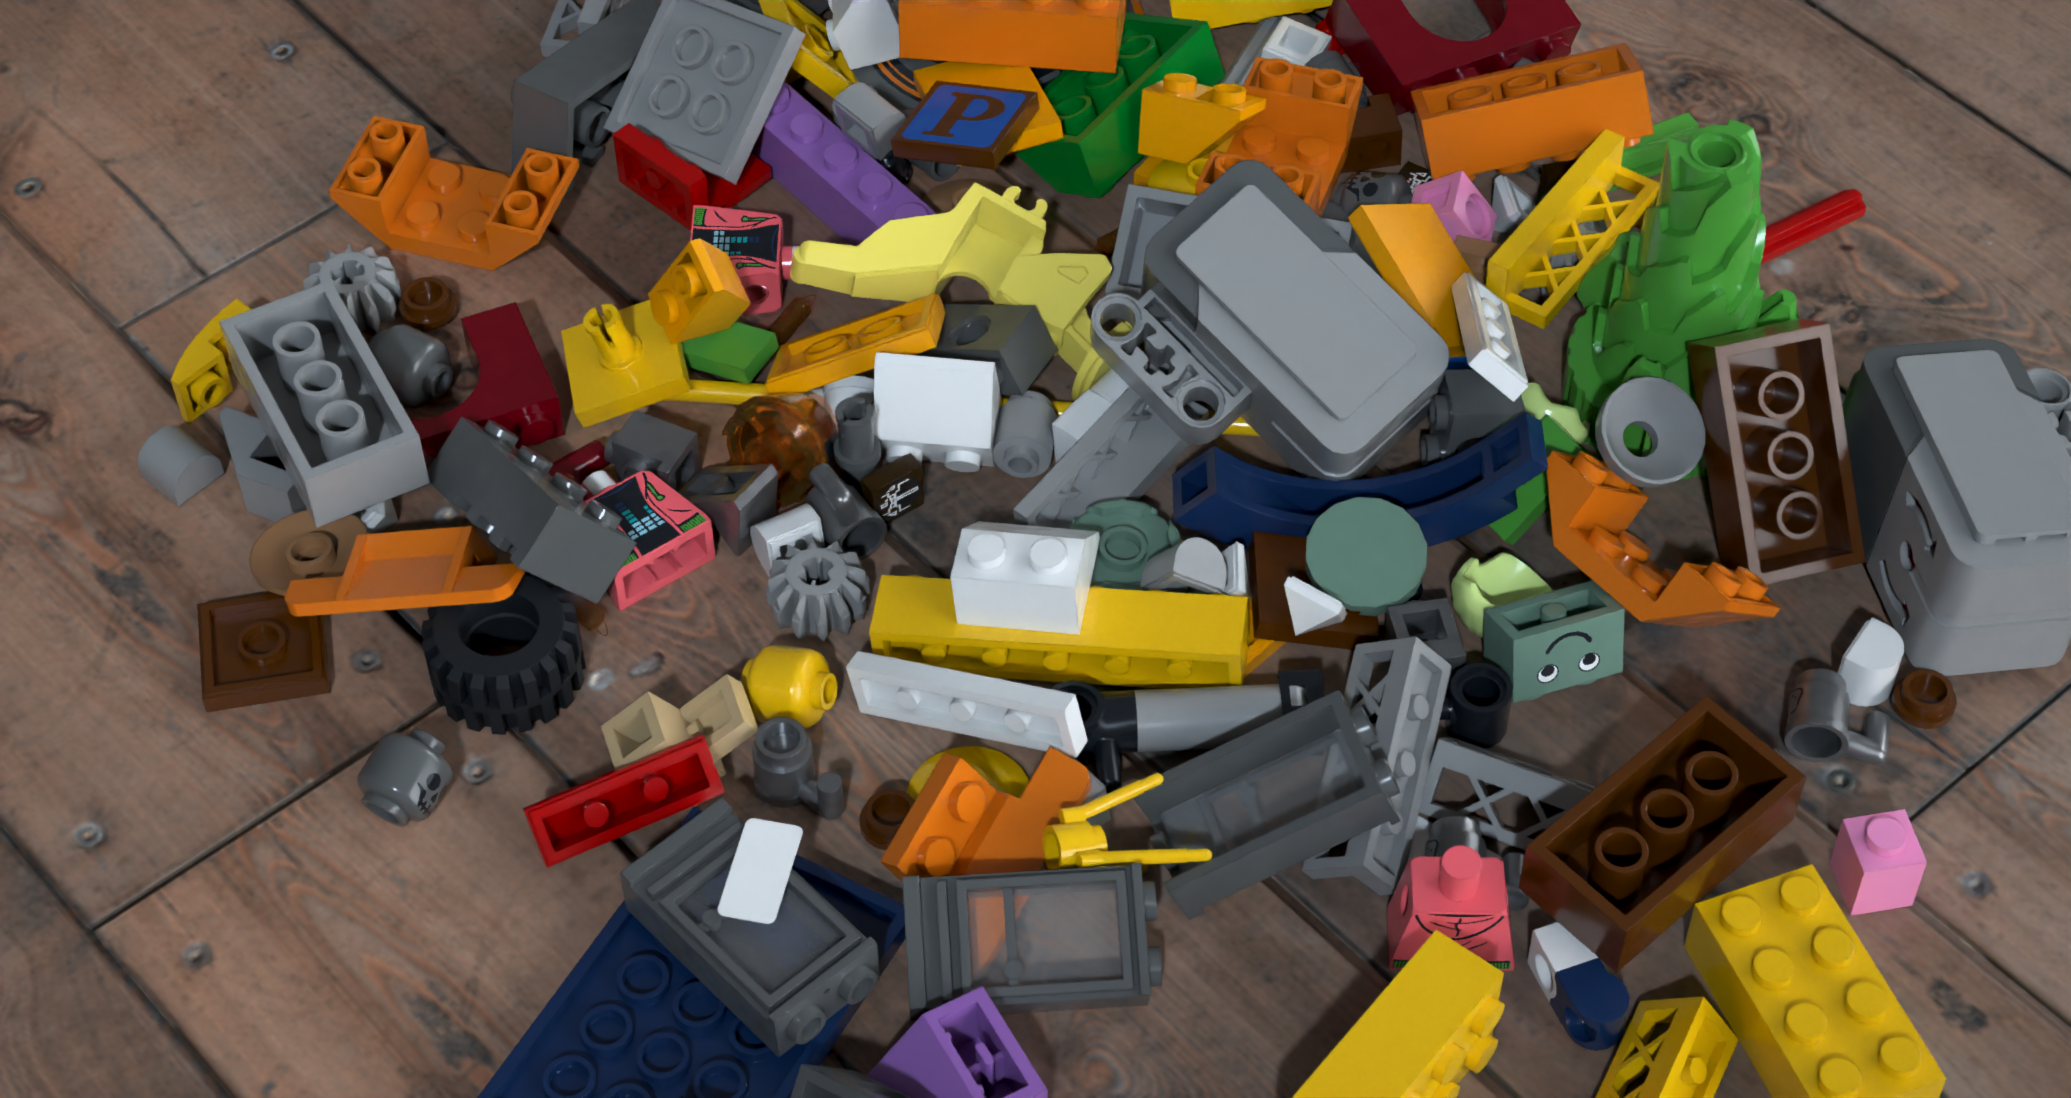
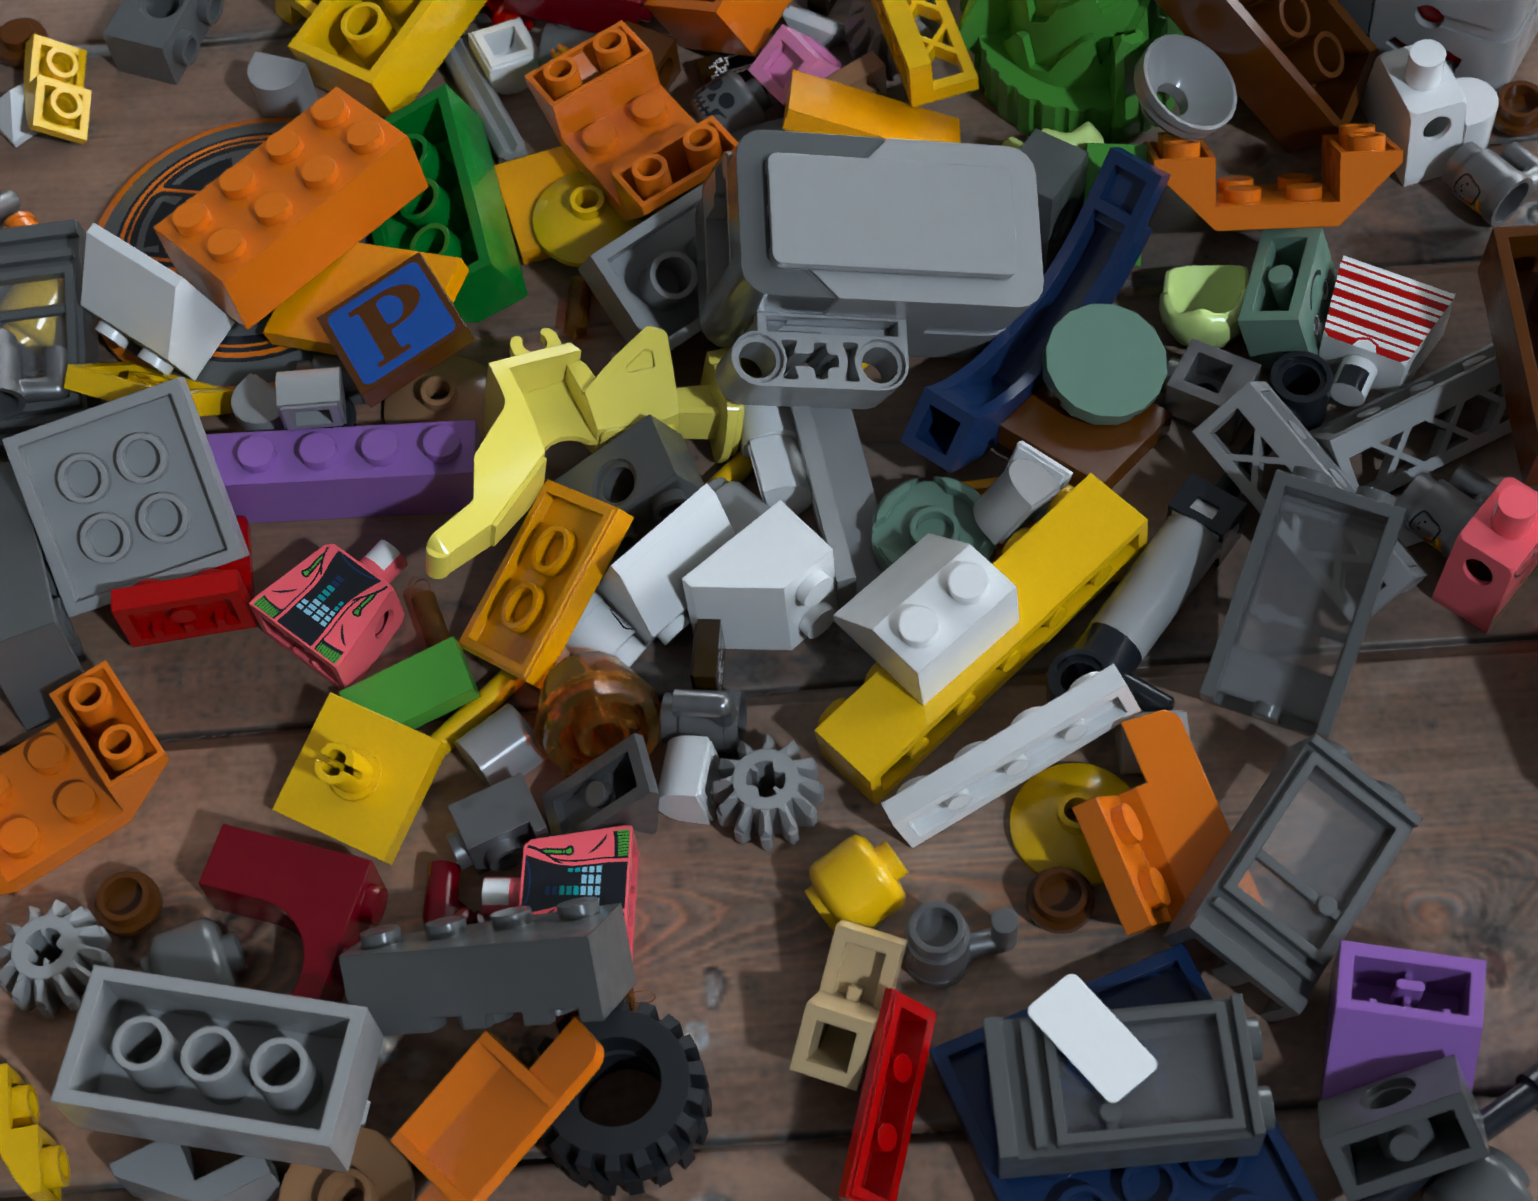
camera: 45 degrees left, 10 degrees up
(698, 293) = (383, 668): light orange slope -> none
(707, 416) = (500, 747): none -> light grey brick
(857, 447) = (657, 653): dark grey pin -> none
(970, 463) = (766, 584): none -> white slope
(1080, 845) = (1242, 766): yellow plant -> none
(1192, 119) = (541, 164): light orange slope -> none
(1311, 607) = (1126, 438): white slope -> none
(1489, 336) = (1000, 119): white tile -> none
(1586, 719) = (1379, 330): none -> white torso
(1837, 598) = (1415, 94): none -> white torso

